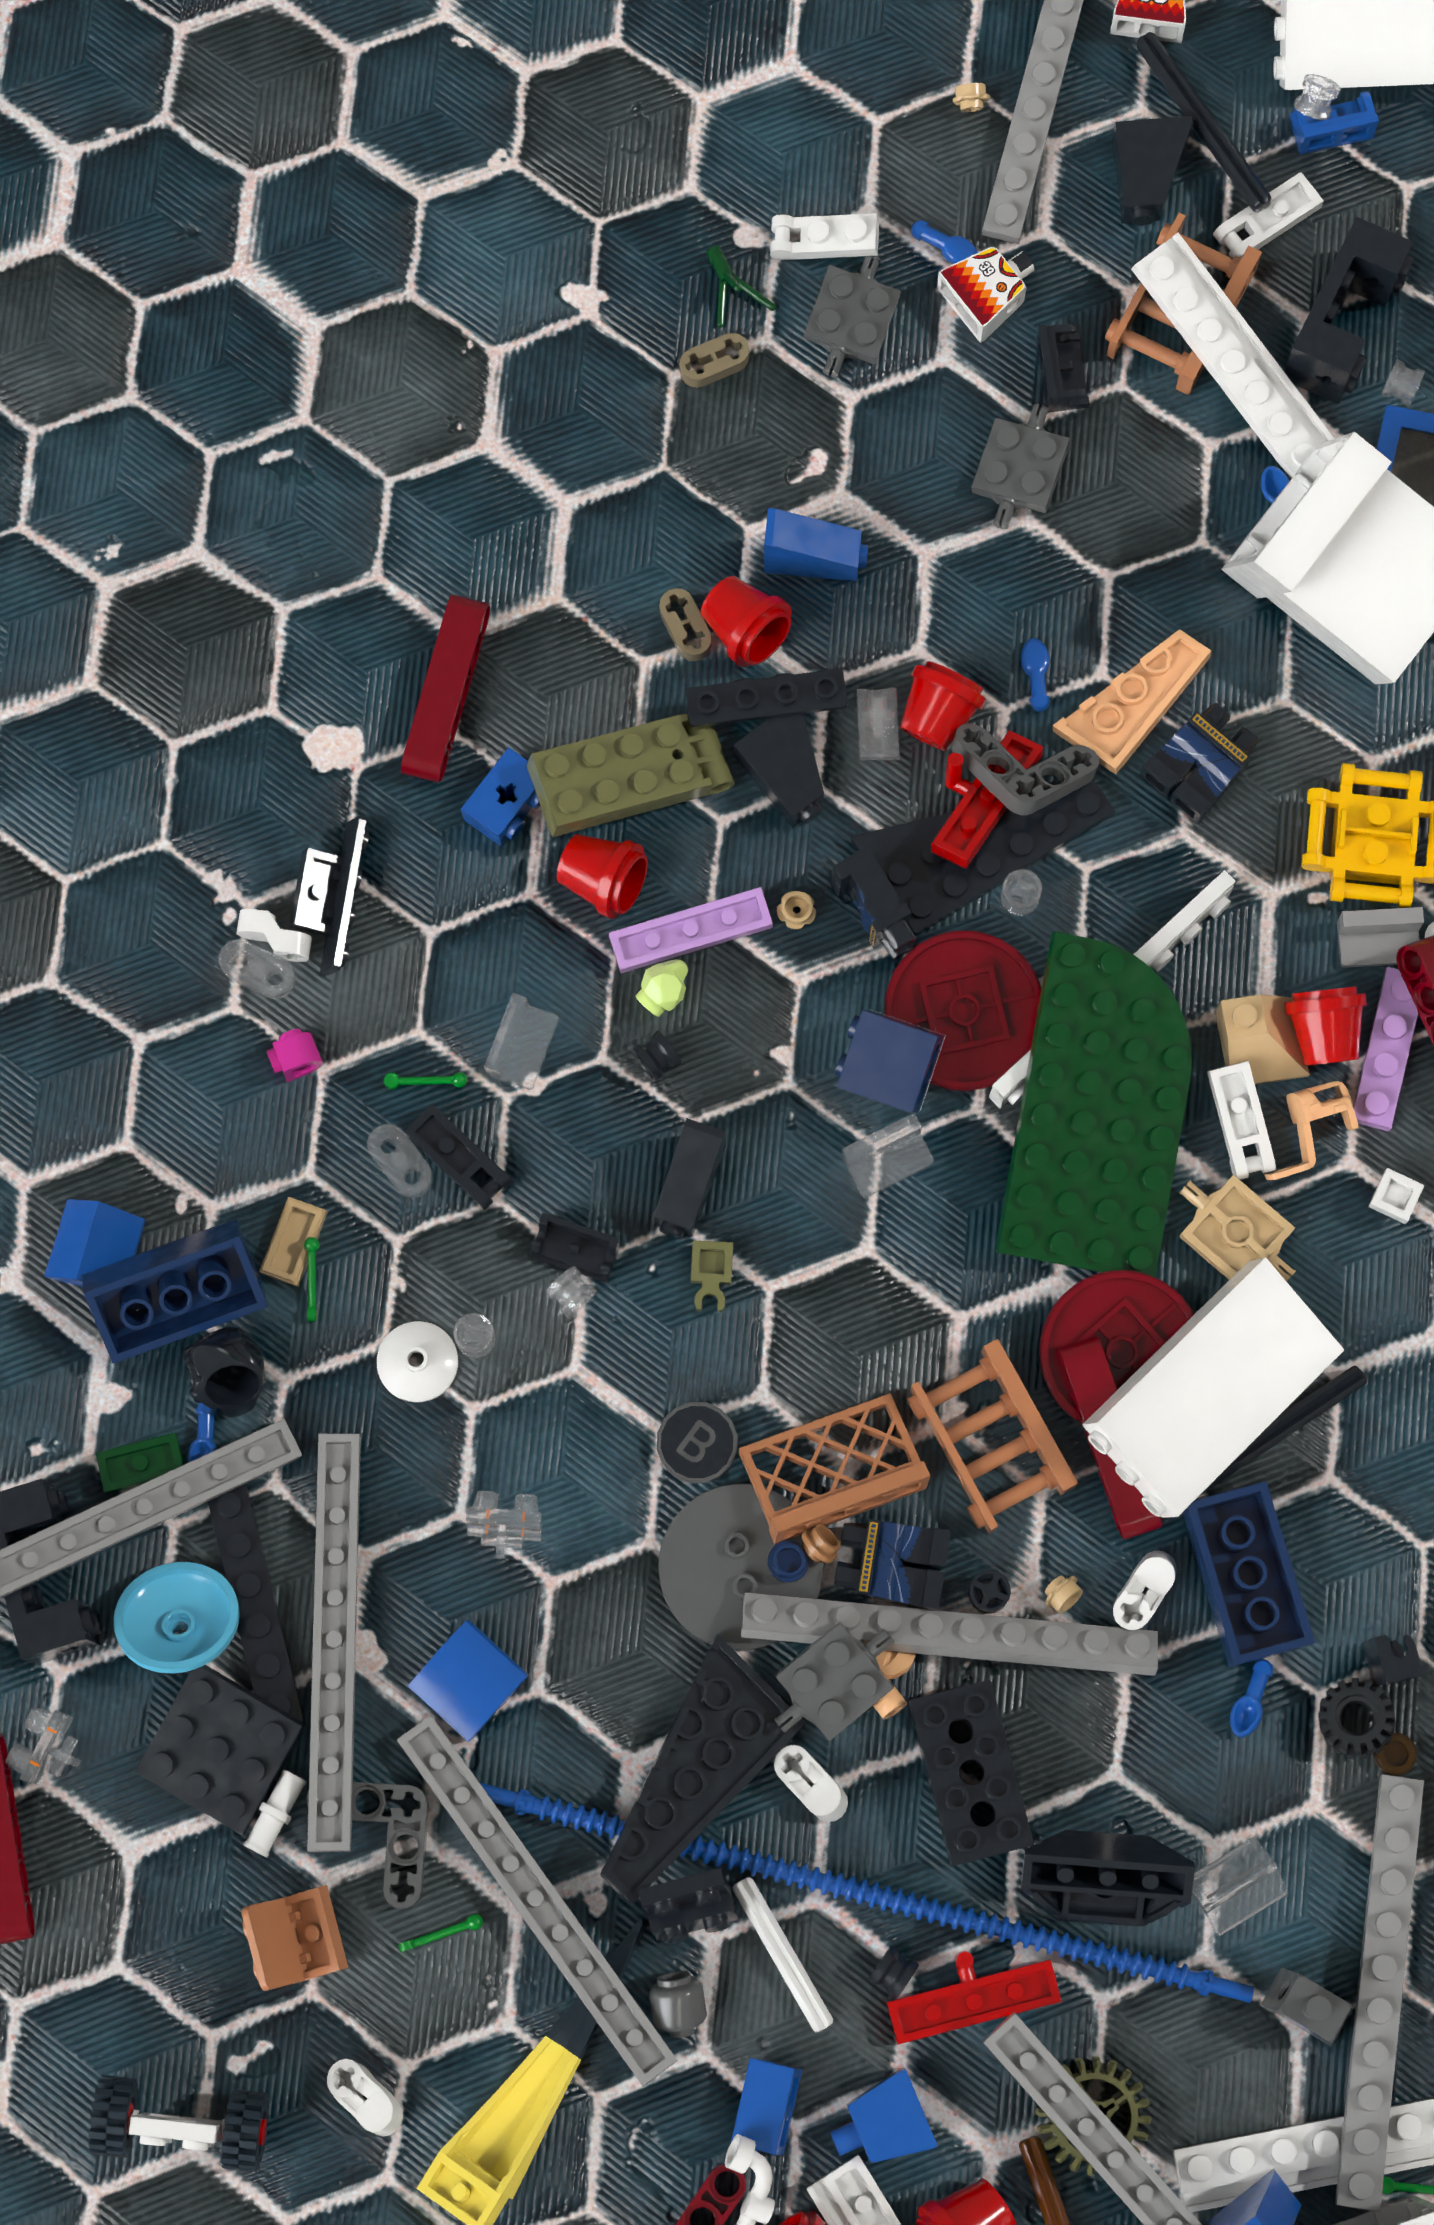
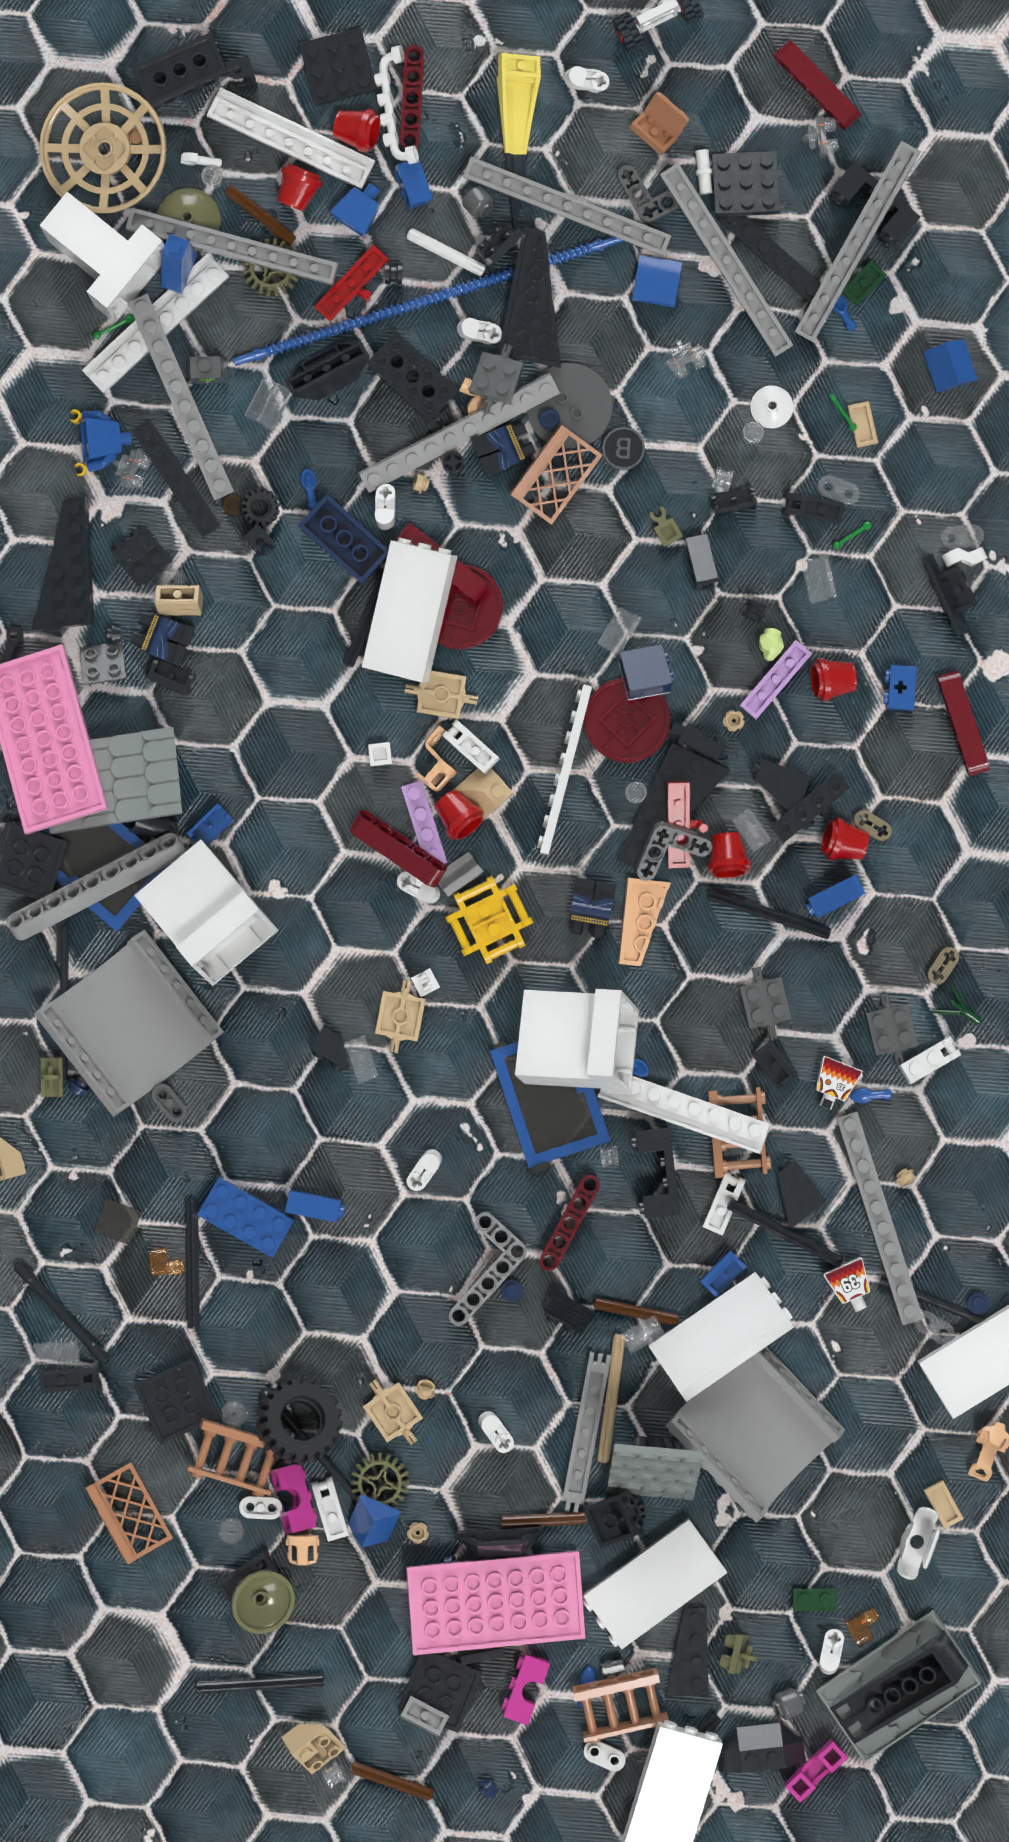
camera: 150 degrees right, 10 degrees up
(173, 1600) = (810, 234): medium azure dish -> none
(174, 1291) = (898, 365): dark blue brick -> none
(226, 1371) = (853, 346): black piece -> none
(294, 1054) = (918, 508): dark pink plate -> none
(473, 1922) = (588, 181): green hinge -> none
(628, 773) = (850, 732): olive hinge -> none
(820, 1544) = (540, 435): medium nougat plate -> none
(930, 591) = (769, 914): none -> black axle
(1011, 1403) = (475, 543): nougat fence -> none
(1035, 663) = (697, 909): blue piece -> none
(1097, 1113) = (536, 704): dark green plate -> none
(1317, 97) = (737, 1274): clear wheel -> none

